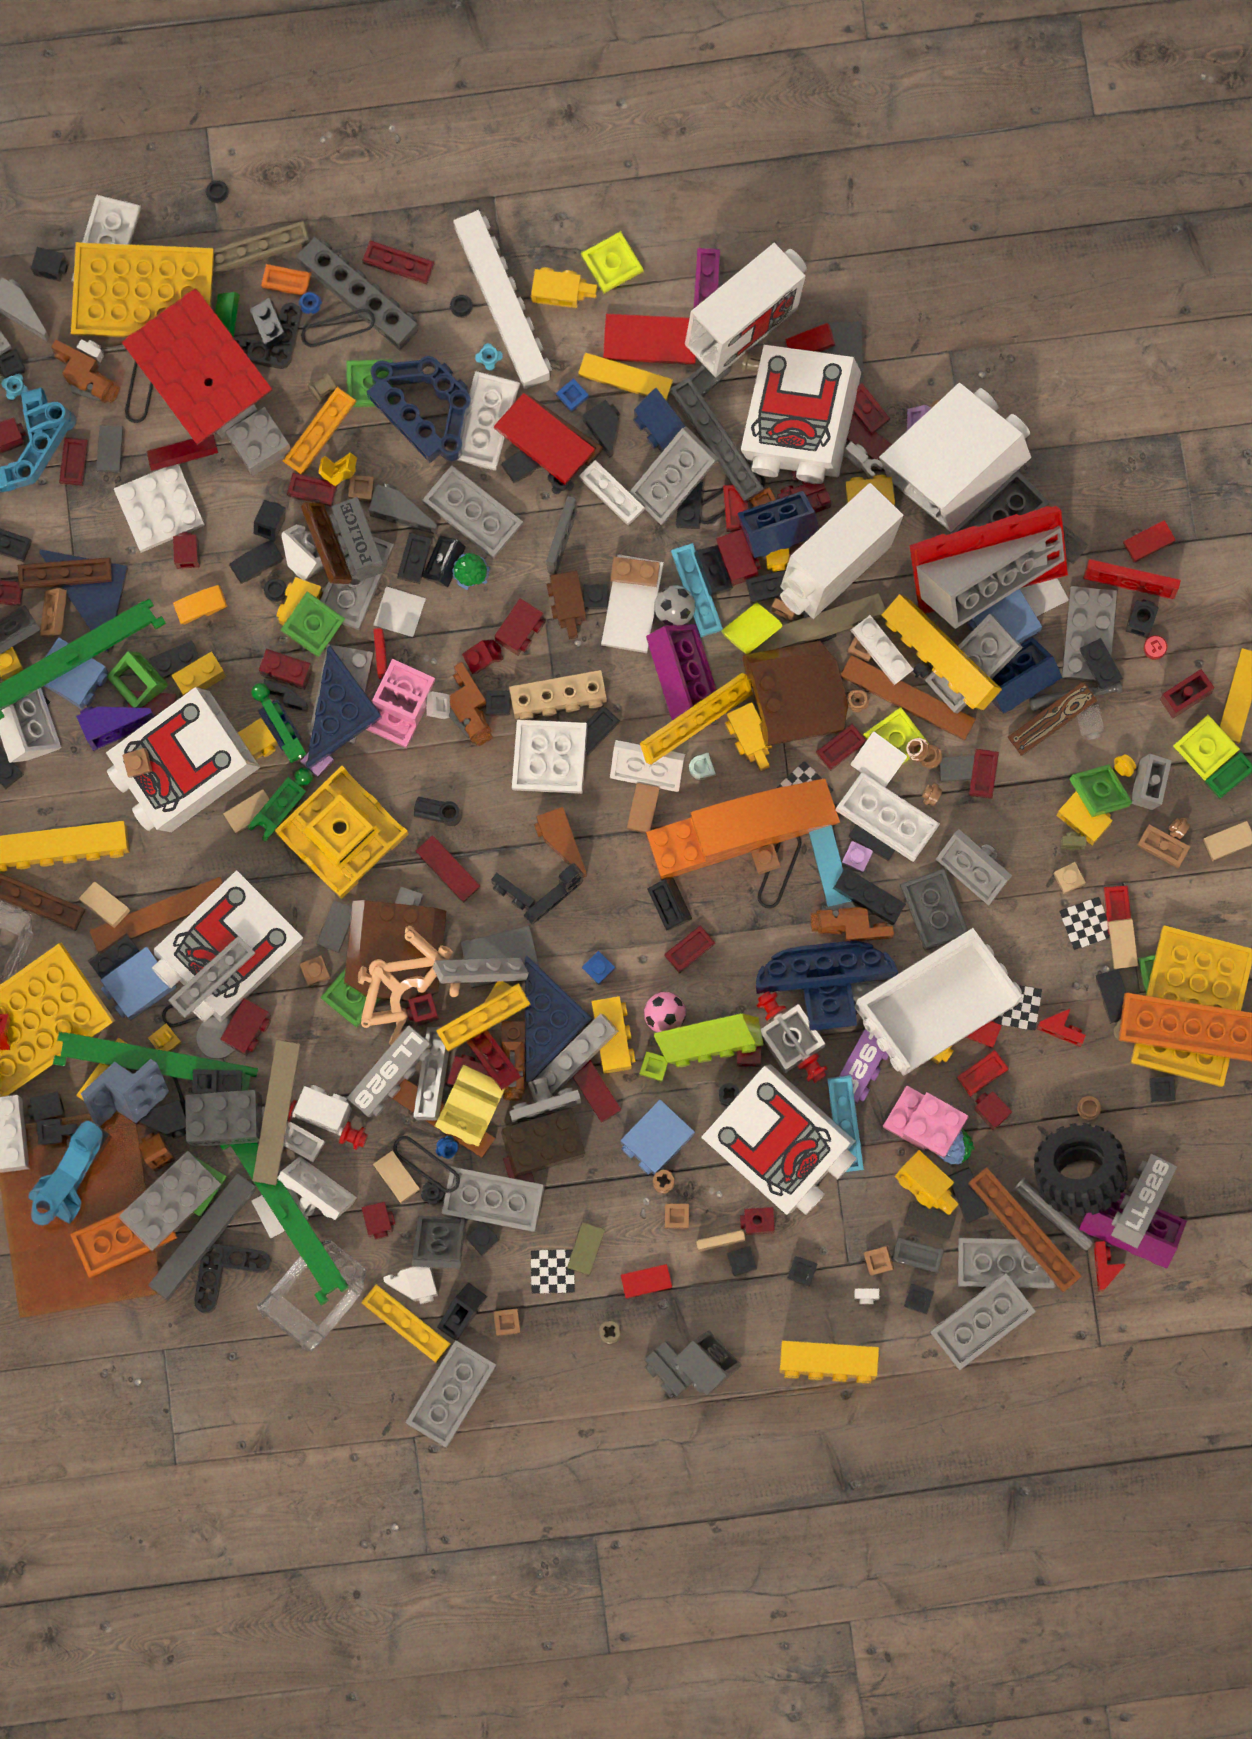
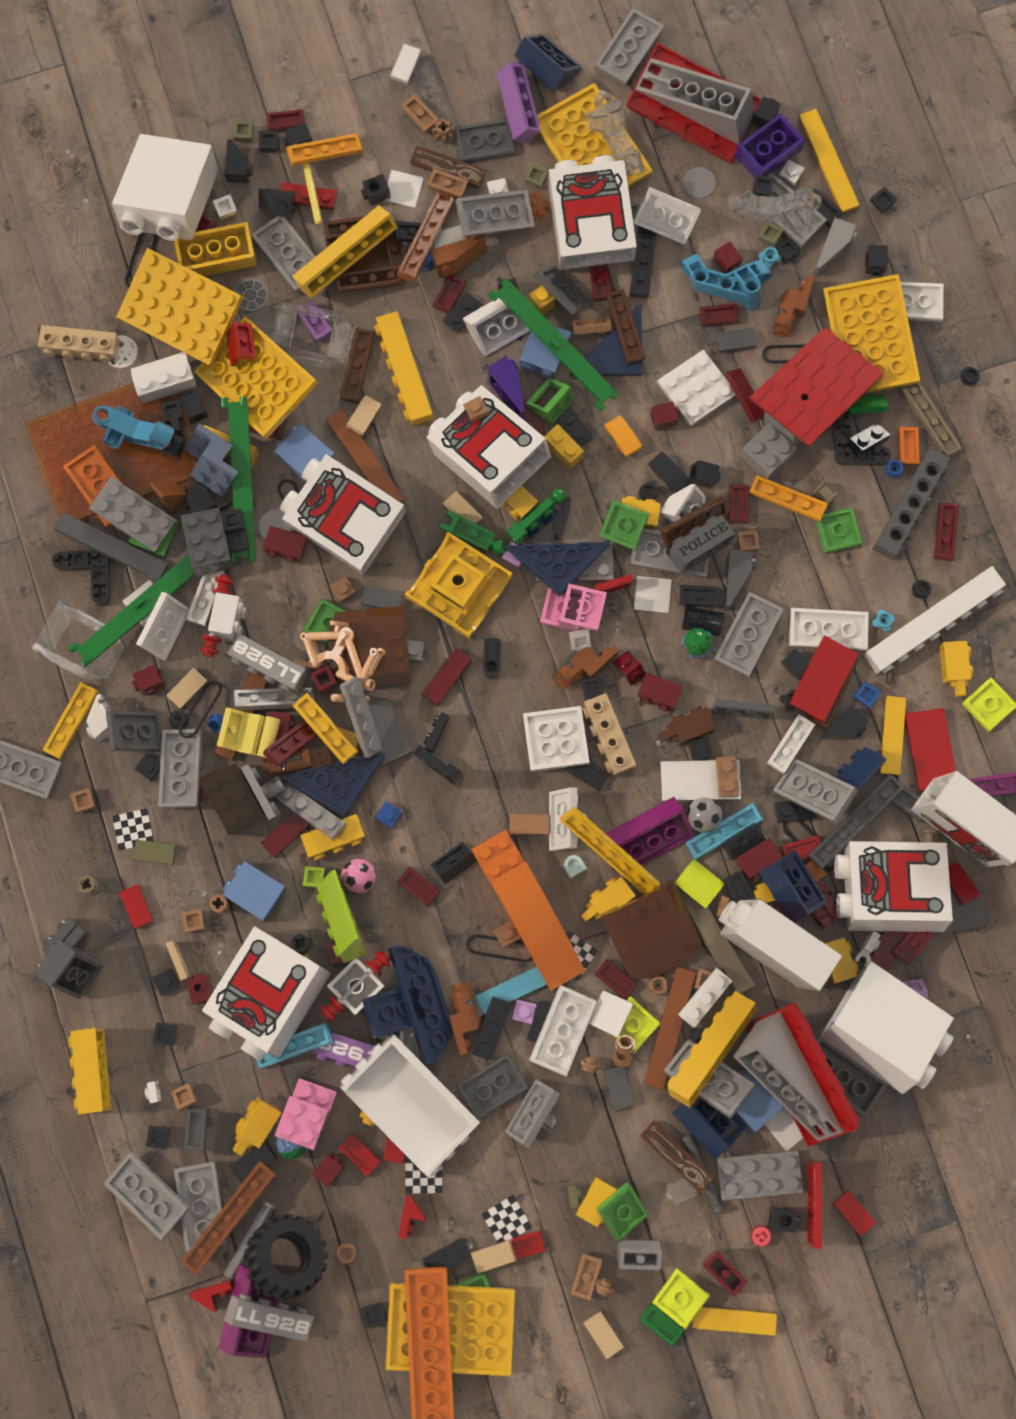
camera: 75 degrees right, 0 degrees up
(91, 349) = (813, 307): white plate -> none
(113, 956) = (324, 431): black plate -> none
(164, 1039) = (265, 485): yellow tile -> none
(211, 977) = (310, 503): light grey plate -> none
(276, 1112) = (216, 580): dark tan tile -> none
(285, 669) = (583, 513): dark red brick -> none
(338, 471) = (757, 518): yellow bracket -> none
(339, 337) = (872, 500): black piece -> none
(412, 372) = (854, 561): dark blue brick -> none
(462, 1311) = (86, 762): black slope -> none
(559, 837) = (490, 760): dark orange slope -> none
(983, 773) = (616, 1106): dark red tile -> none
(1069, 878) = (542, 1198): tan plate -> none
(1101, 664) = (734, 1190): black plate -> none
(1124, 765) = (650, 1228): yellow plate -> none

